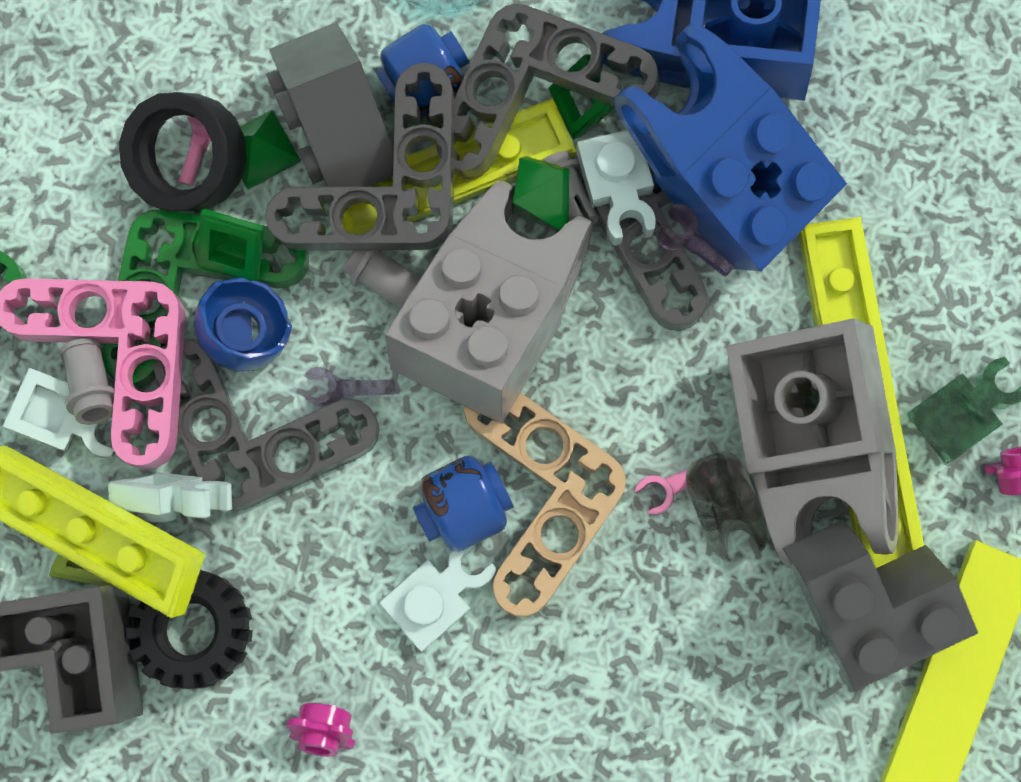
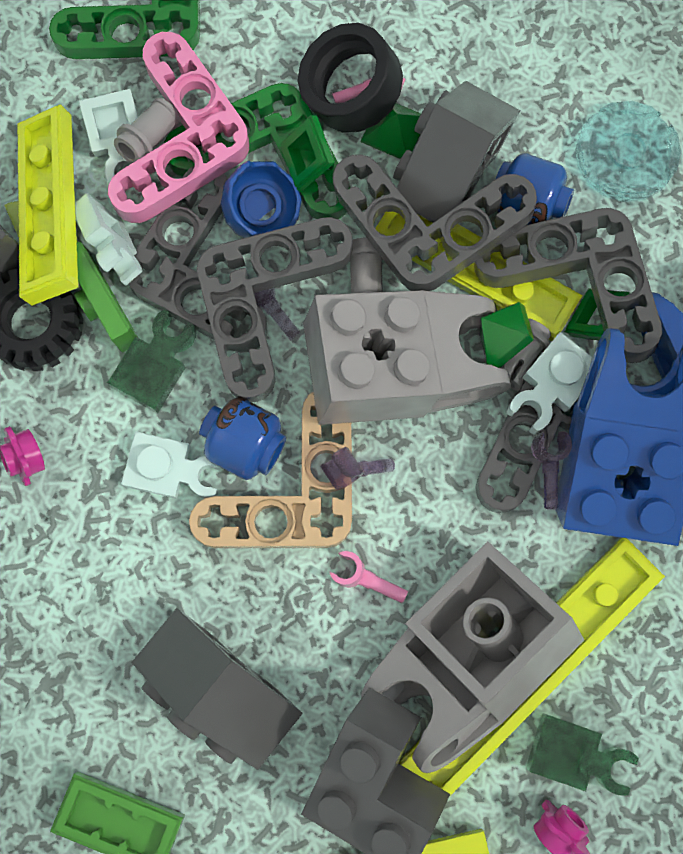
camera: 50 degrees right, 0 degrees up
(227, 546) = (100, 302): none -> bright green plate
(325, 406) = (240, 291): none -> dark grey beam
(328, 546) = (150, 370): none -> clear green plate
(562, 428) = (345, 469): none -> clear purple hand
(684, 697) = (213, 692): none -> dark grey brick
(725, 501) = (375, 621): clear smoke piece -> none

